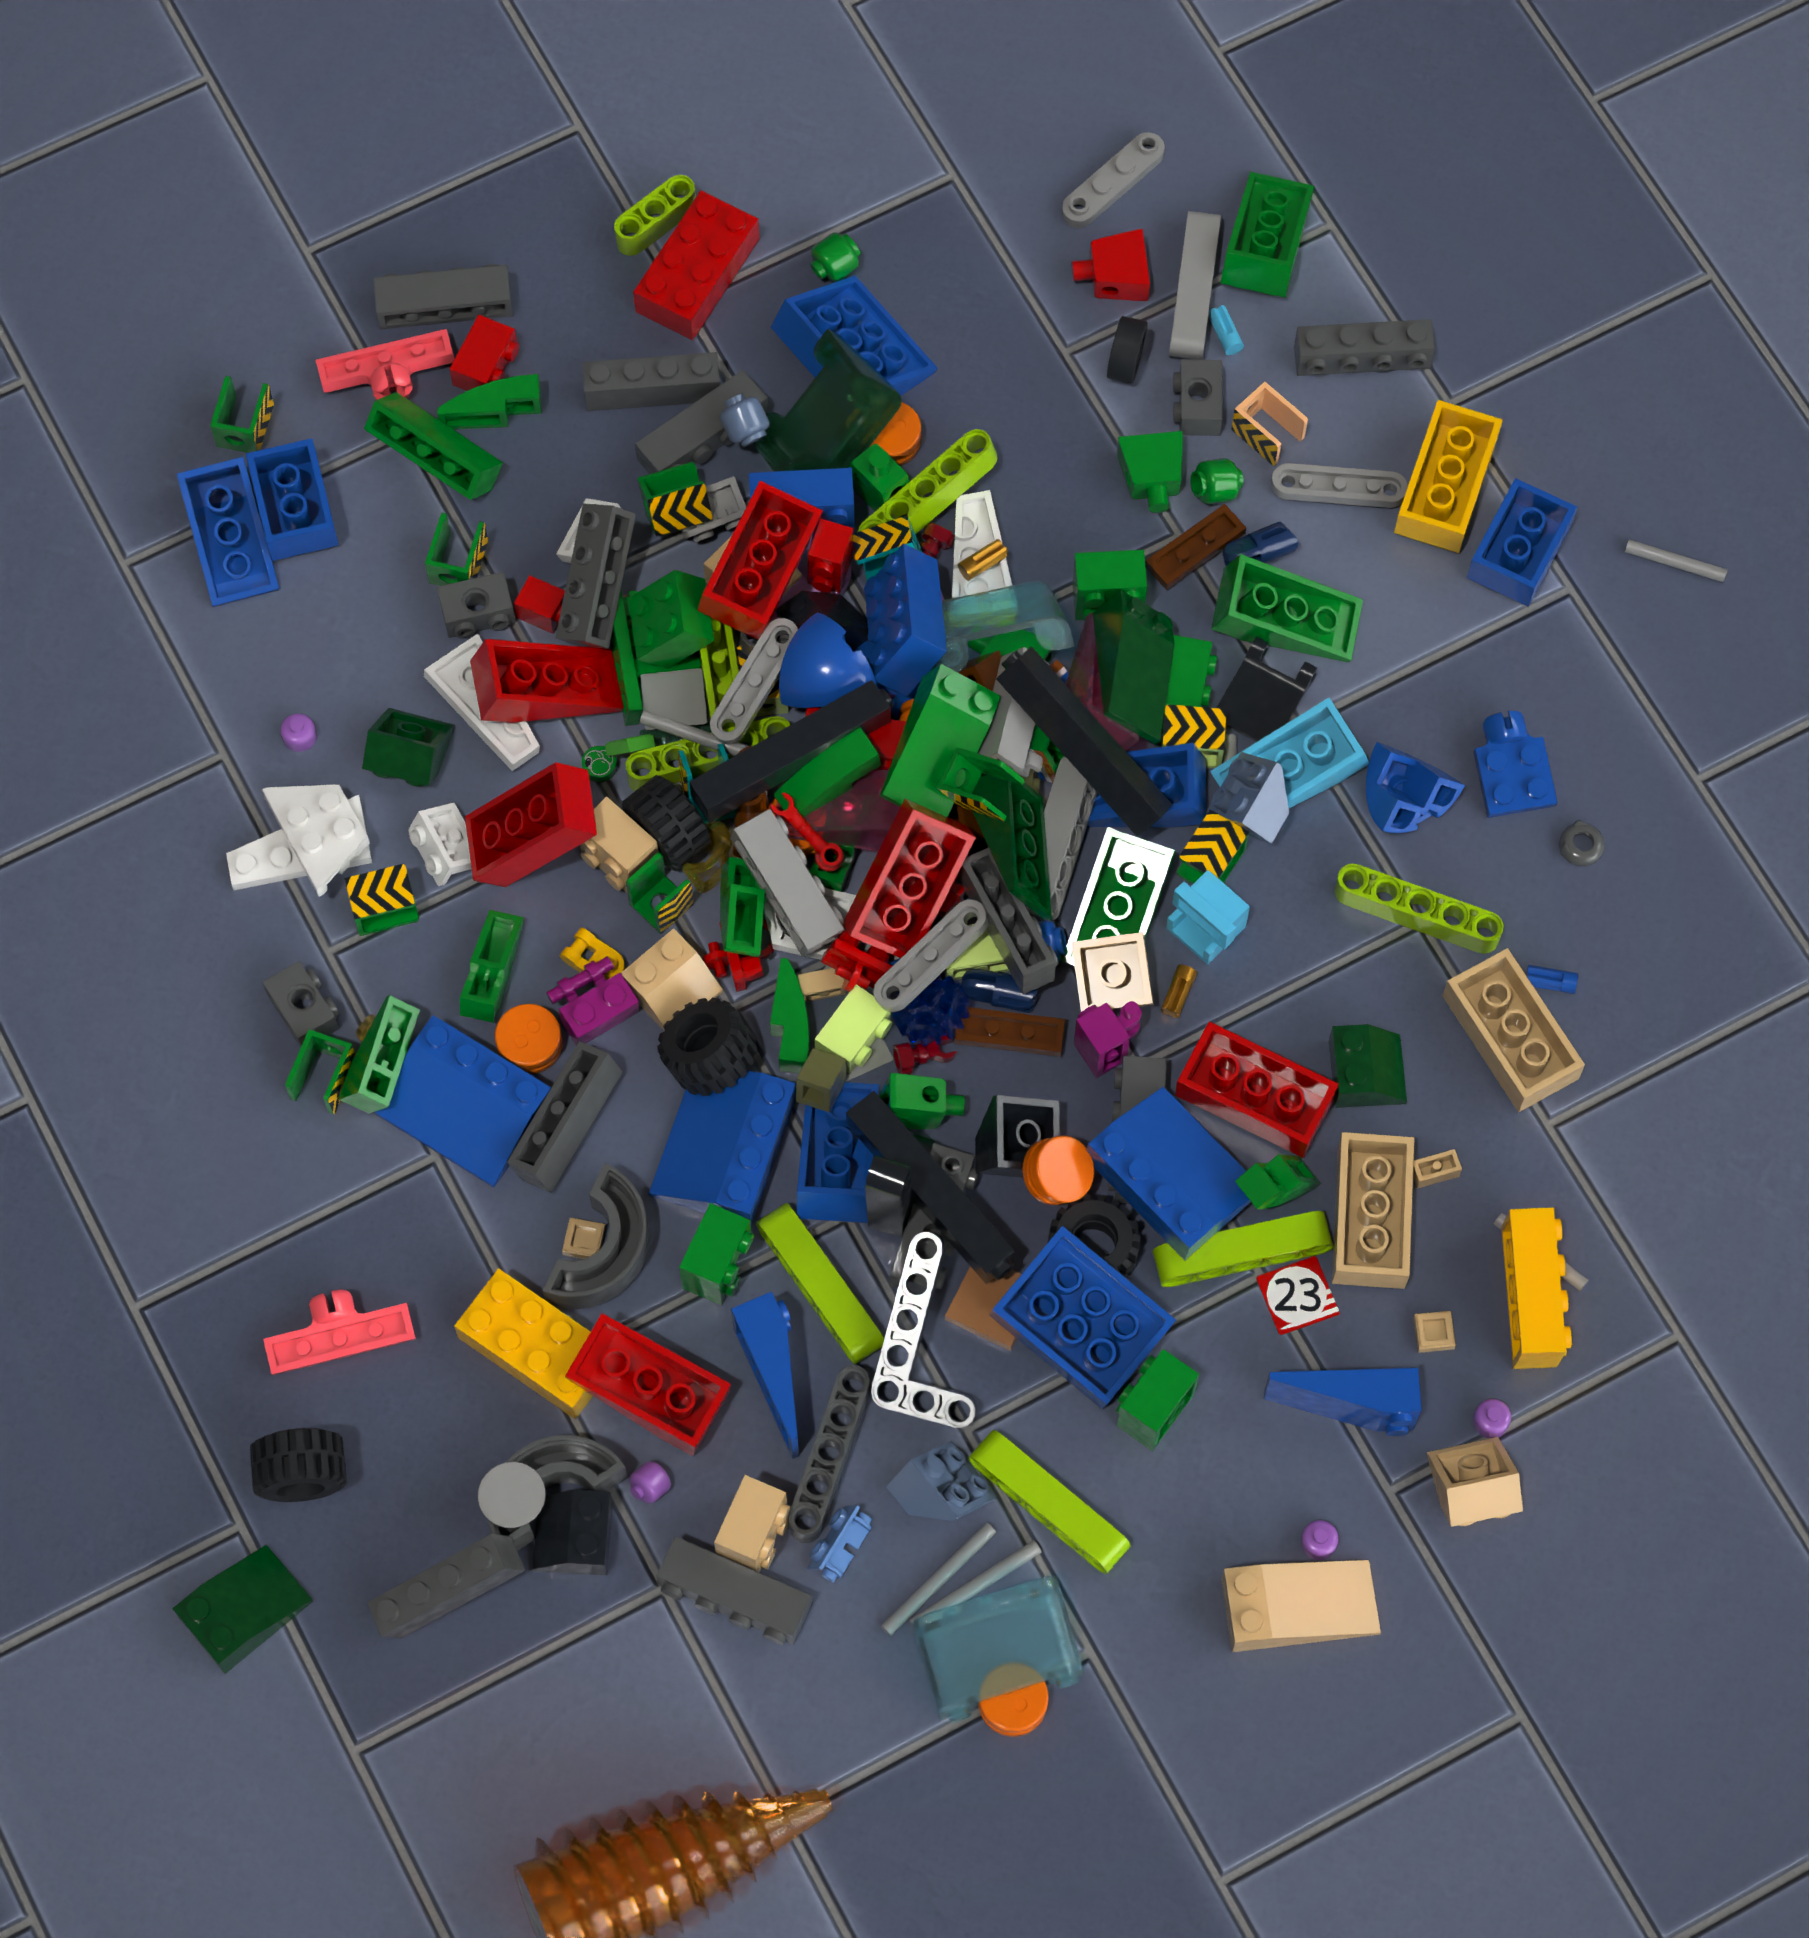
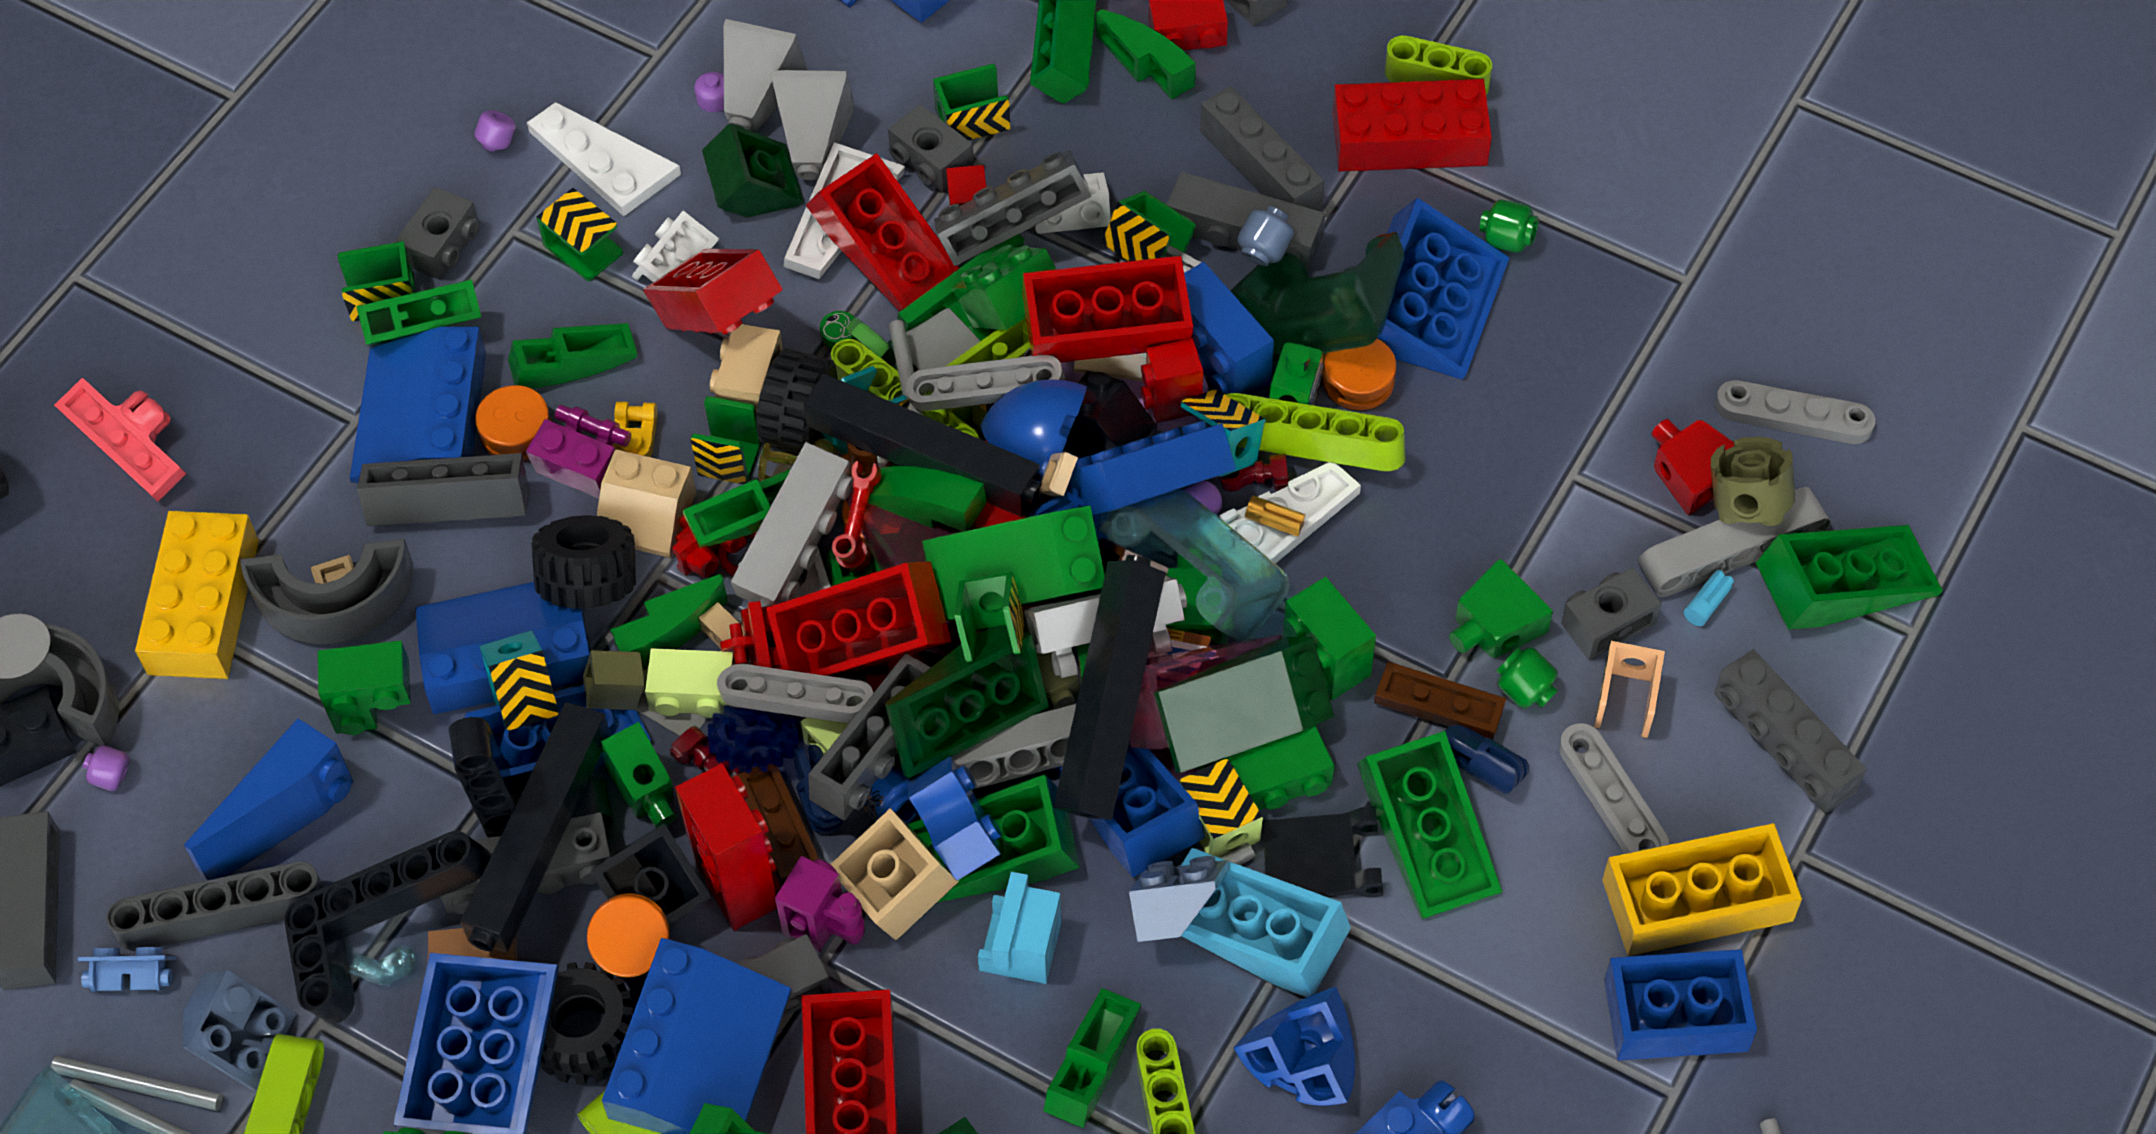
camera: 60 degrees right, 10 degrees down
(225, 912) = (494, 130): none -> medium lavender piece
(314, 687) = (748, 63): none -> light grey slope
(319, 829) = (617, 150): white wing -> none
(392, 674) = (813, 115): none -> light grey slope
(648, 1384) = (195, 705): red slope -> none
(753, 1524) = (89, 870): tan brick -> none
(794, 1131) = (519, 680): none -> piece
(820, 1283) = (398, 797): lime beam -> none
(888, 672) = (1057, 474): none -> tan tile
(904, 694) = (1068, 501): none -> blue piece
(959, 1359) = (385, 970): none -> clear light blue arm
(1040, 1058) = (729, 845): none -> red brick
(1099, 906) = (954, 817): none -> blue brick
(1127, 349) = (1606, 515): black tyre -> none
(1173, 240) = (1753, 481): none -> olive brick
(1178, 990) = (926, 955): pearl gold piece -> none
(1213, 847) = (1097, 899): piece -> none
(1326, 926) = (1091, 1058): none -> green slope

